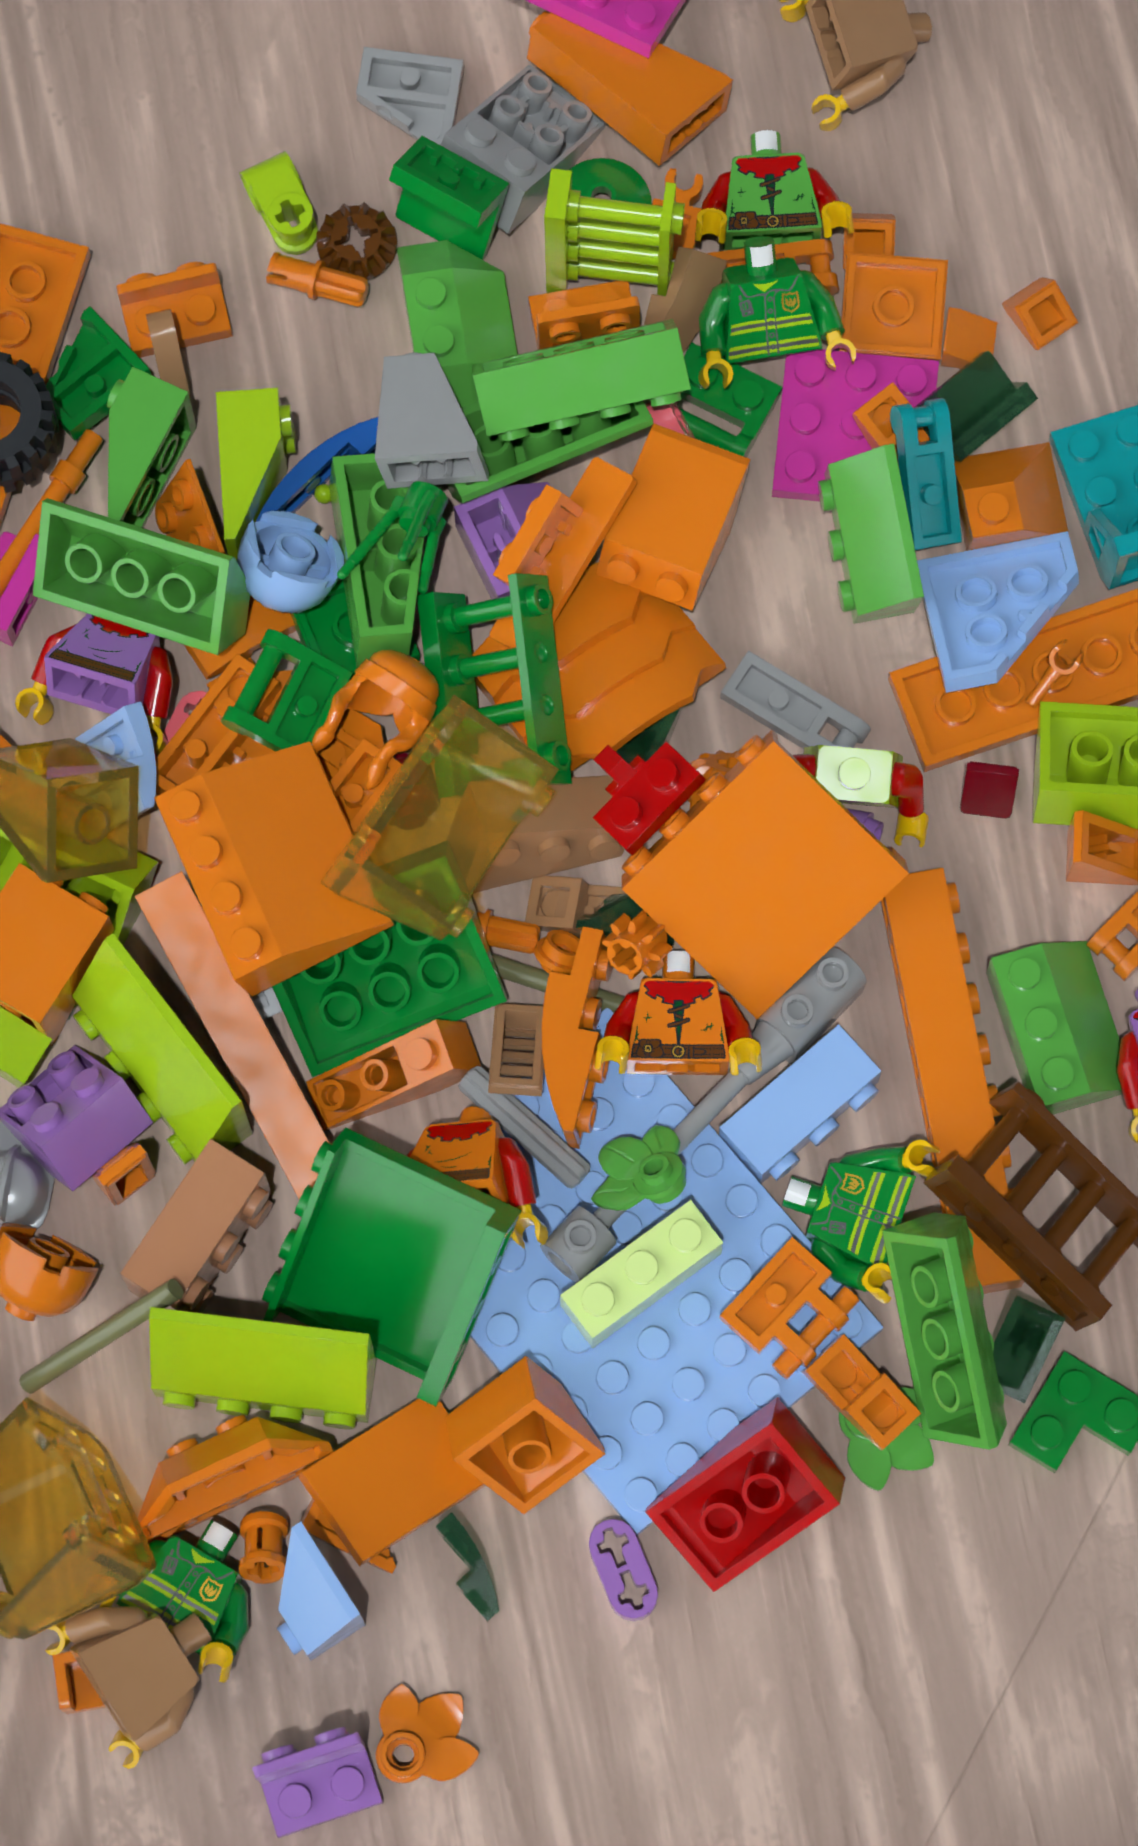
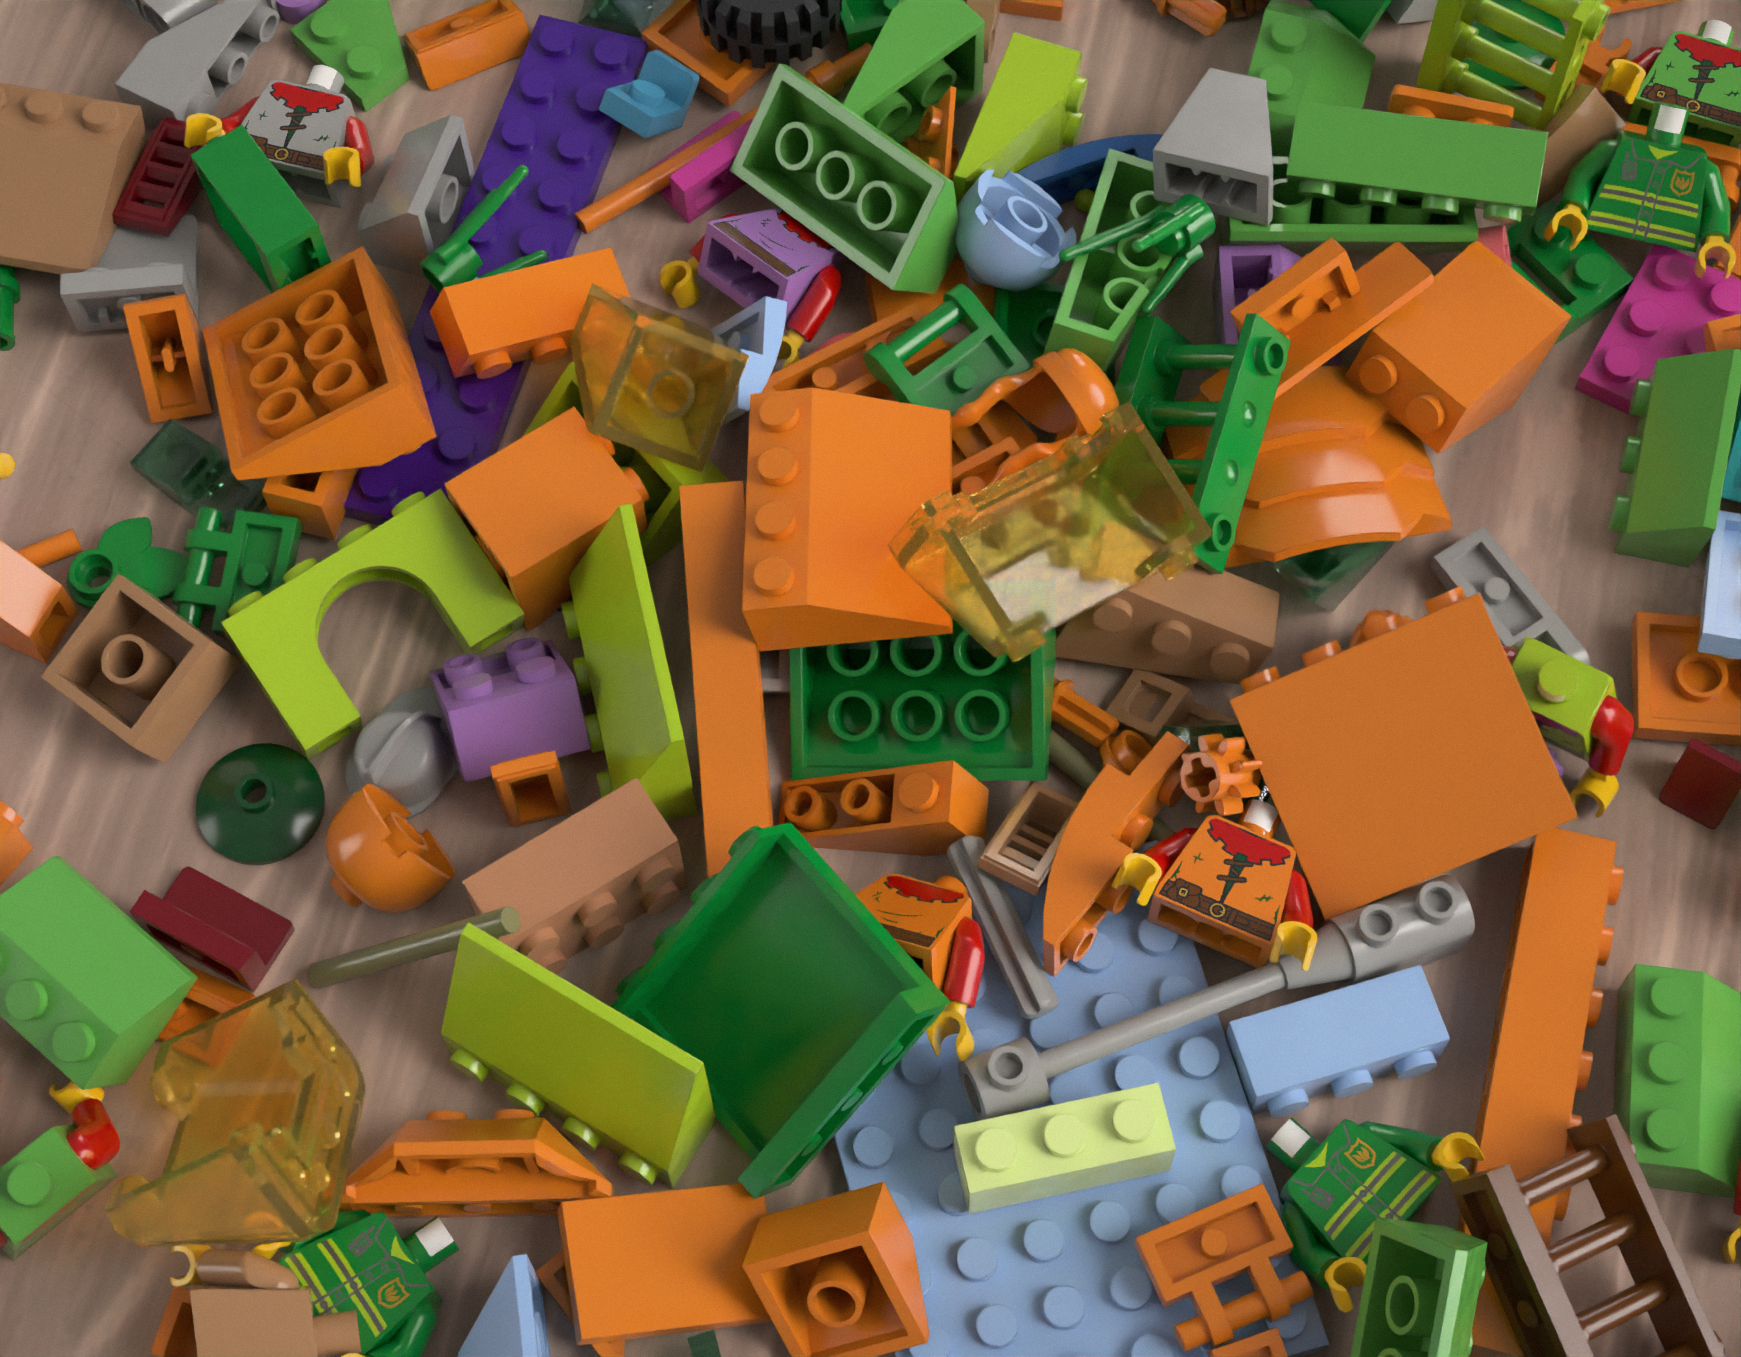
camera: 25 degrees right, 10 degrees down
(263, 1547) = (476, 1272): orange bush -> none
(641, 1170) = (1115, 1027): bright green plate -> none
(644, 793) = (1300, 610): red hinge -> none

